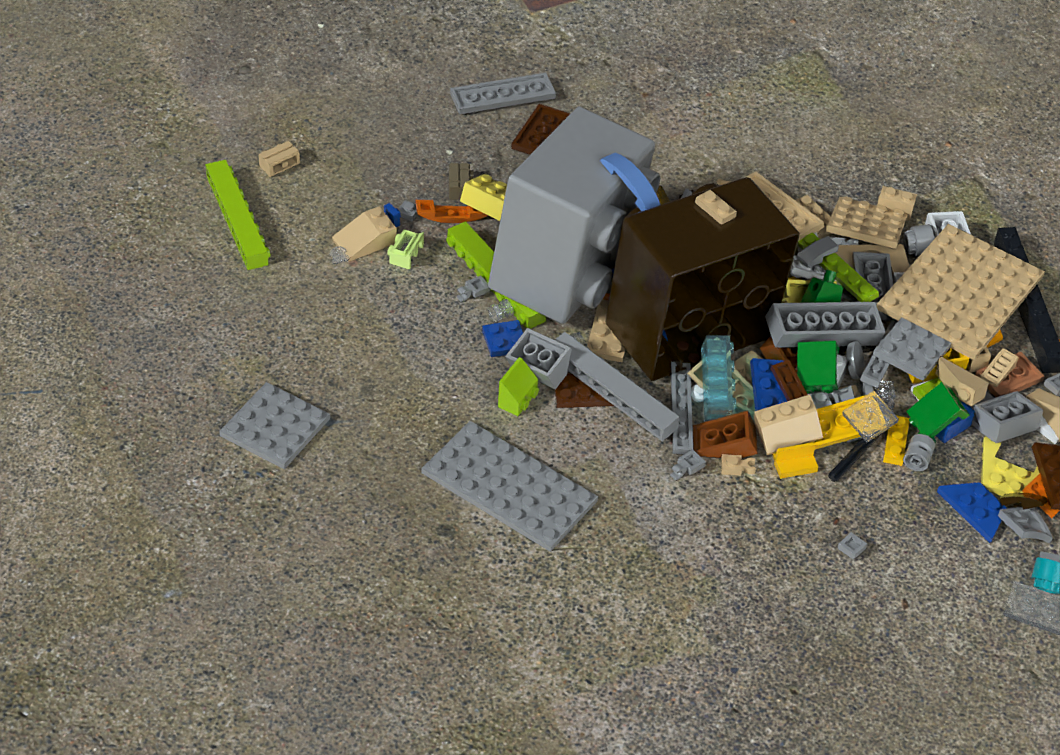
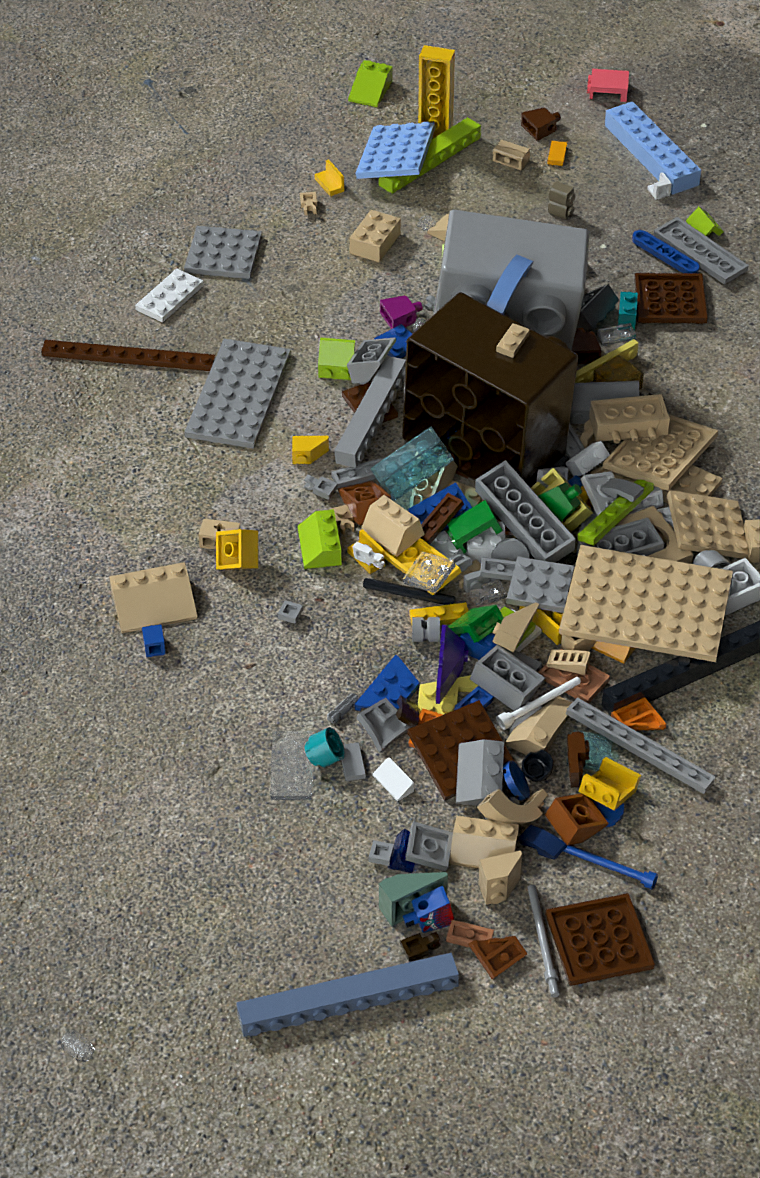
camera: 70 degrees right, 0 degrees up
(83, 215) = (371, 83): none -> lime slope
(187, 159) = (436, 87): none -> yellow brick
(218, 299) = (331, 179): none -> yellow panel
(219, 232) = (395, 150): none -> light blue plate
(221, 55) = (608, 82): none -> coral panel
(242, 328) = (308, 202): none -> tan plate
(244, 122) = (539, 122): none -> reddish brown torso
(294, 129) = (557, 153): none -> light orange tile
(318, 492) = (169, 295): none -> white plate
(338, 65) = (652, 146): none -> light blue brick
(338, 296) = (375, 235): none -> tan brick
(382, 148) = (561, 200): none -> dark tan brick
(394, 561) = (128, 355): none -> reddish brown plate
(396, 82) = (662, 188): none -> white panel
(465, 320) = (399, 311): none -> magenta torso
(466, 76) = (703, 222): none -> lime panel
(484, 116) = (665, 252): none -> blue piece
(630, 457) = (308, 448): none -> yellow slope
(722, 565) = (208, 531): none -> tan brick
(760, 555) = (237, 549): none -> yellow slope
(765, 489) = (320, 540): none -> lime slope
(789, 650) = (153, 597): none -> tan slope
(807, 459) = (365, 554): none -> white plate
(850, 667) = (153, 640): none -> blue brick
(973, 450) = (451, 661): none -> dark purple wedge
(991, 549) = (342, 708): none -> light grey axle
(1020, 452) = (475, 695): none -> blue plate
(1048, 436) = (506, 720): none -> white piece

